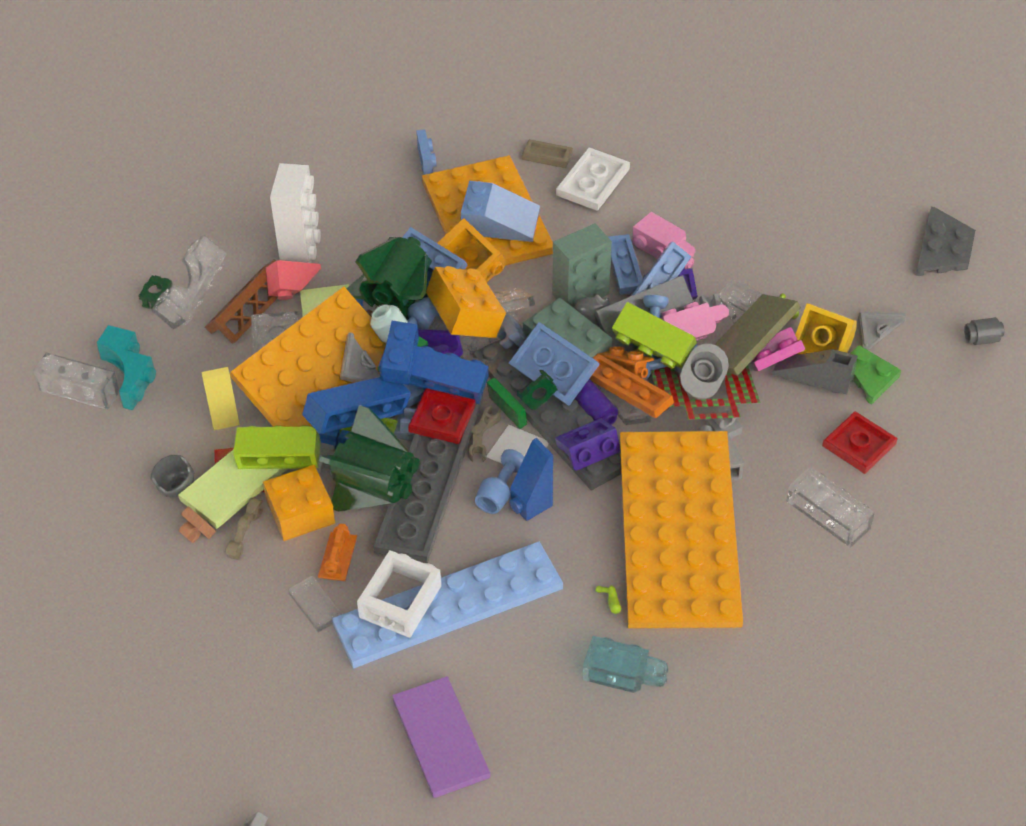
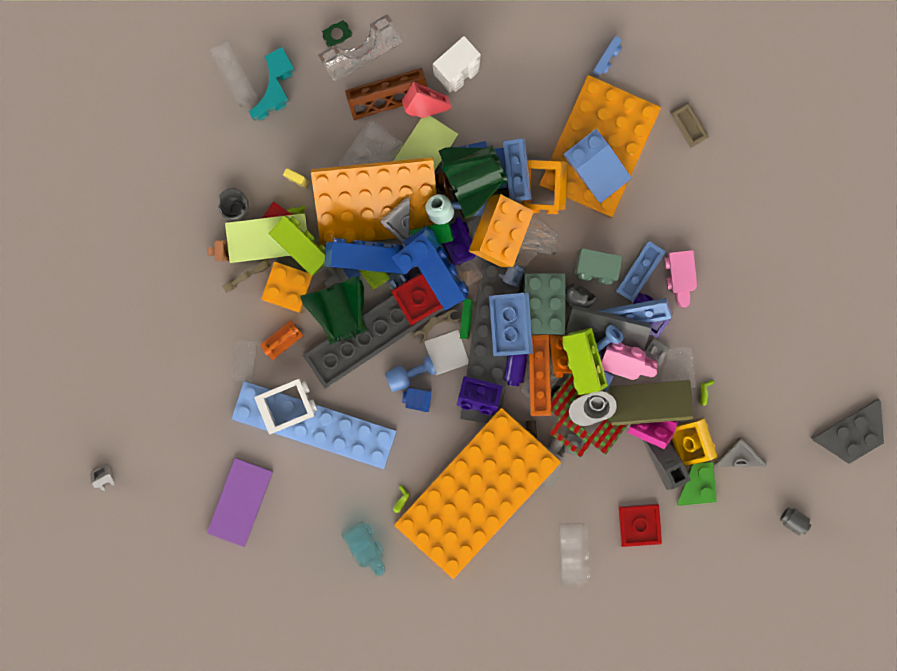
camera: 35 degrees right, 40 degrees up
(543, 381) = (482, 337): dark green piece -> none
(593, 179) = (693, 179): white plate -> none

